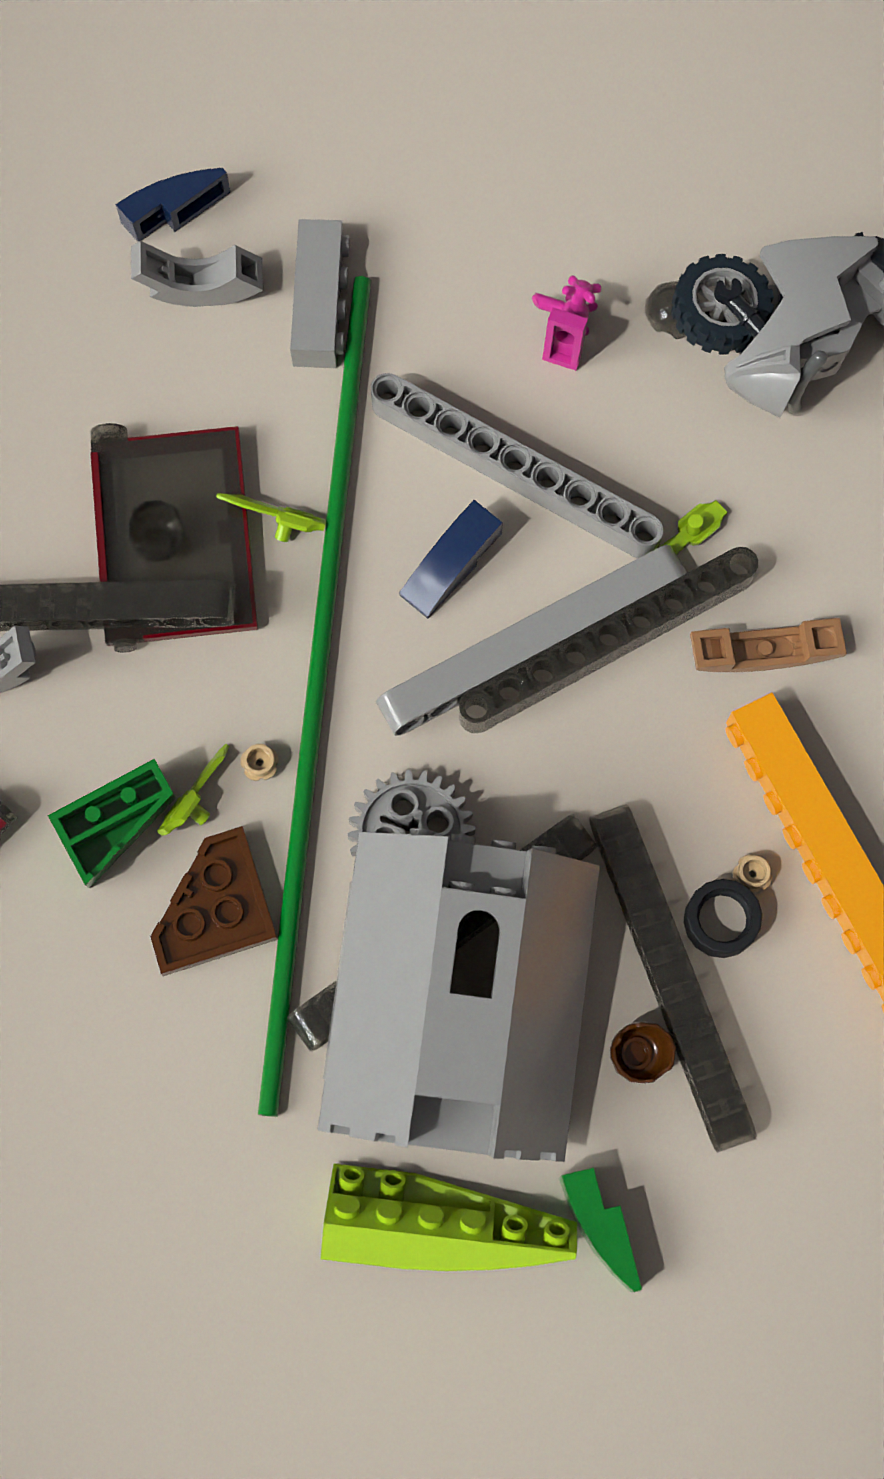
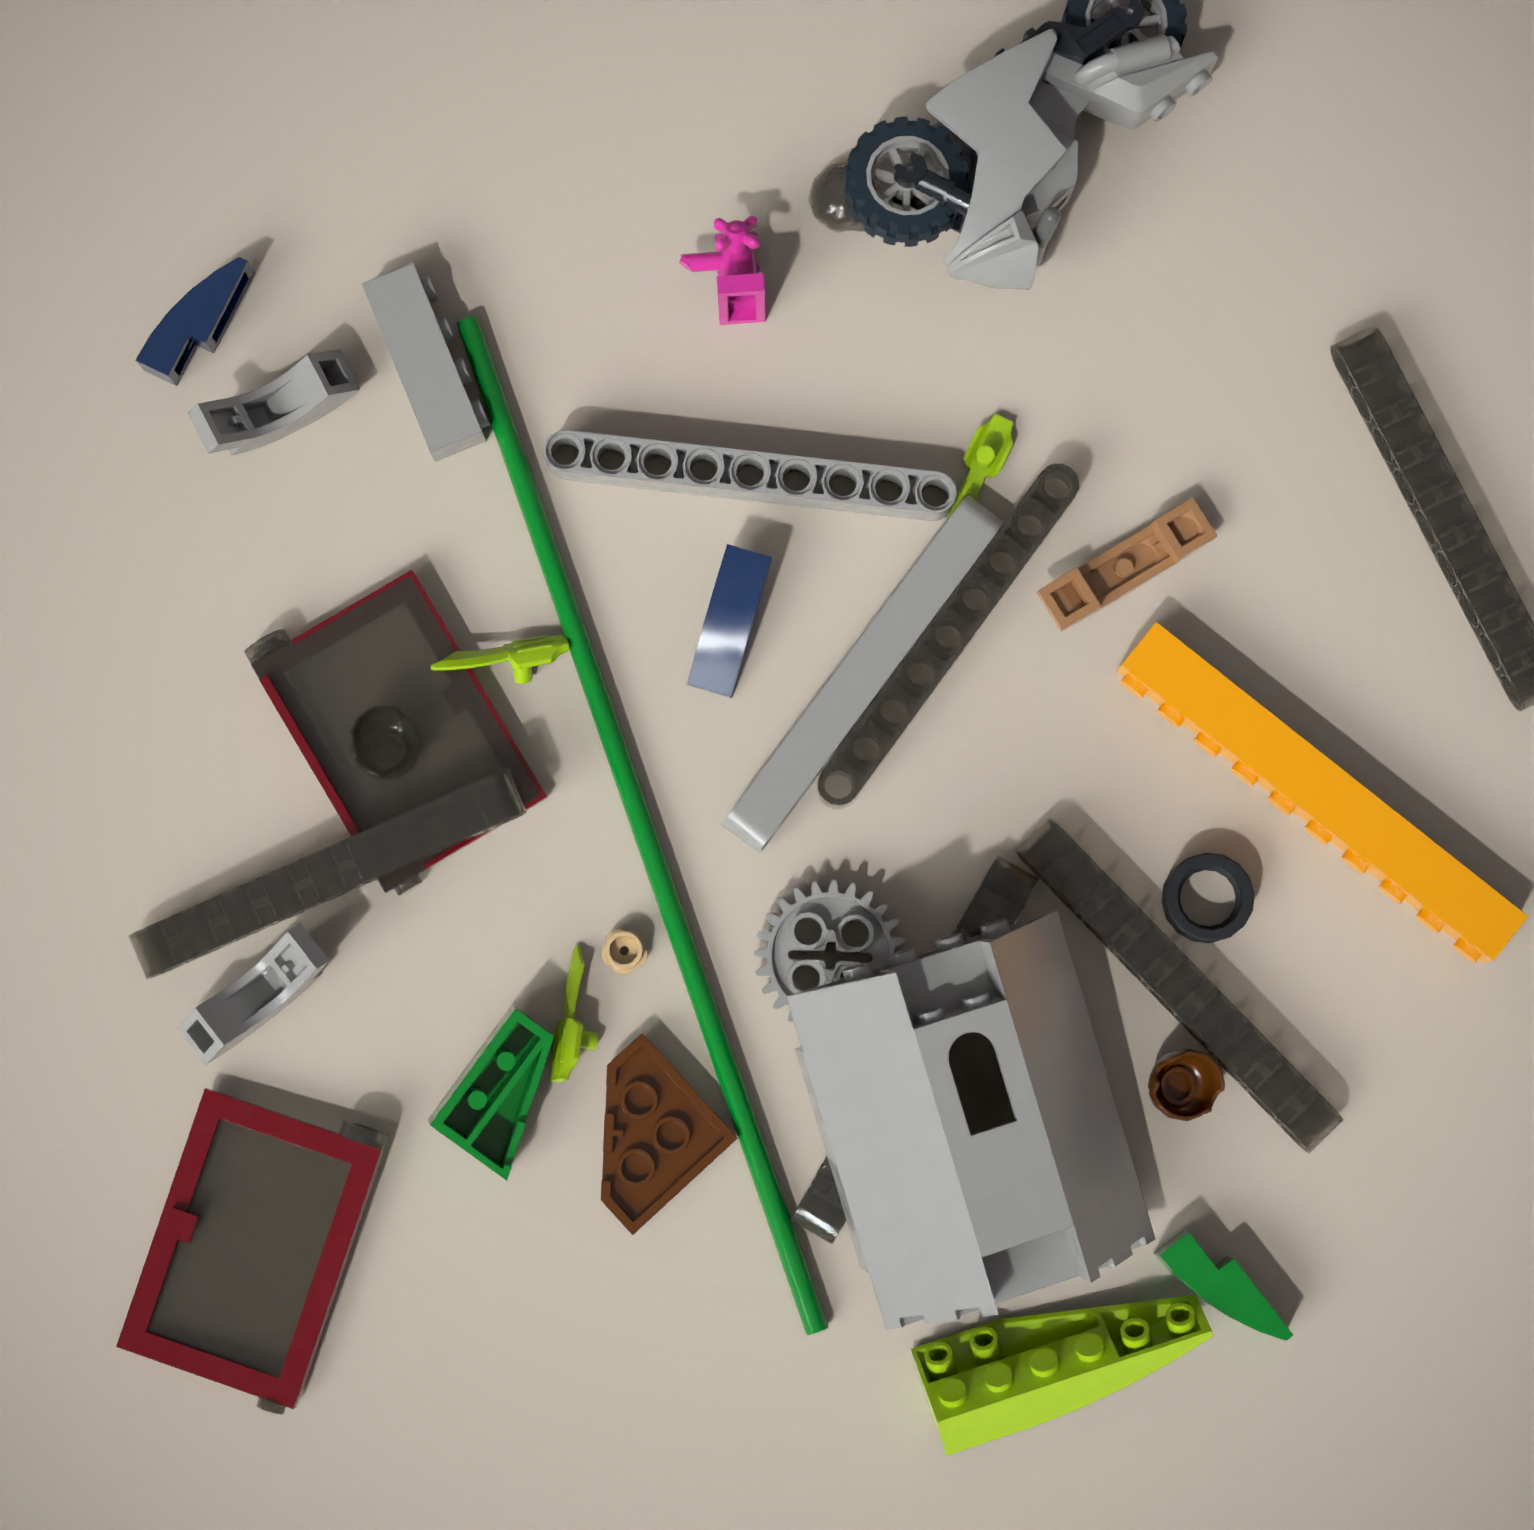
camera: 25 degrees left, 10 degrees up
(757, 864) = (1230, 829): tan plate -> none

